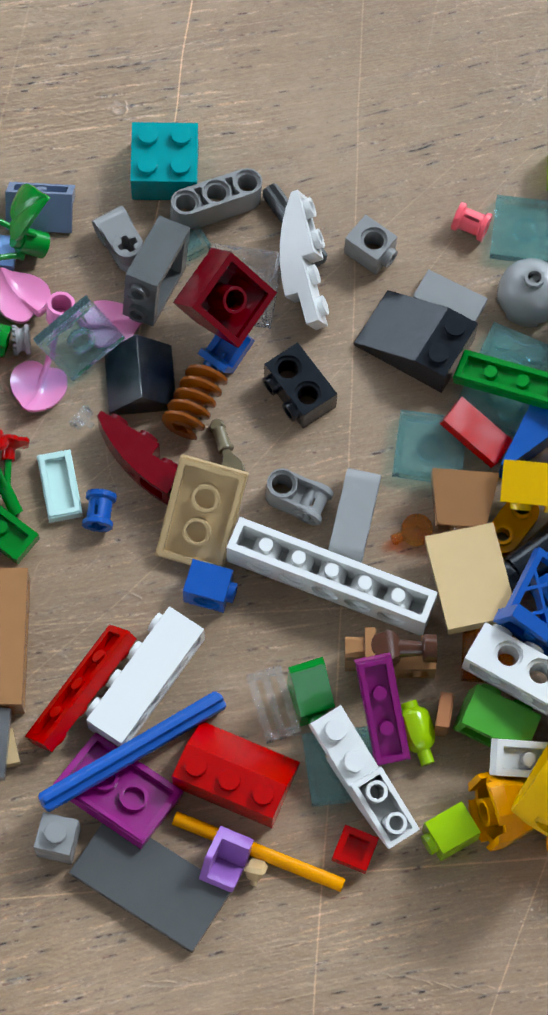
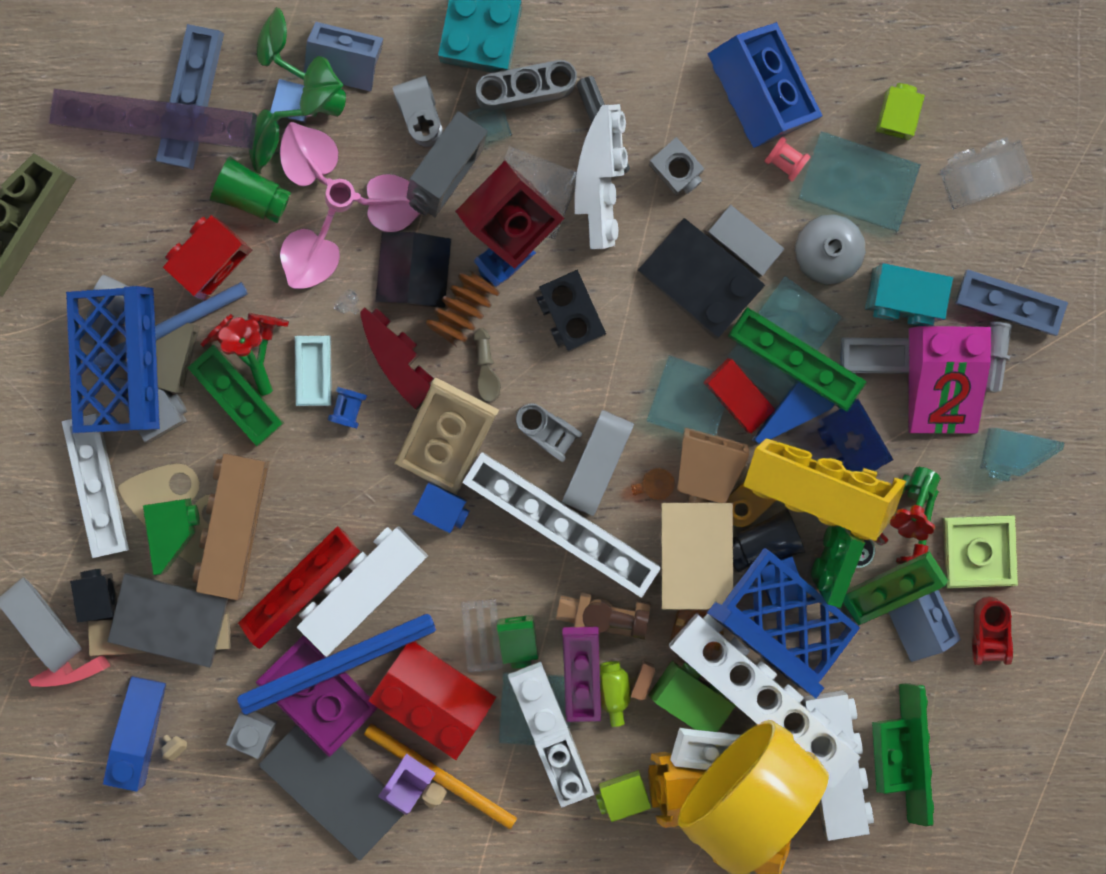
camera: 15 degrees right, 20 degrees up
(22, 339) = (300, 206): light grey bush -> none
(79, 338) = (355, 226): clear light blue tile -> none
(355, 849) = (531, 794): red plate -> none
(434, 163) = (764, 84): none -> blue slope

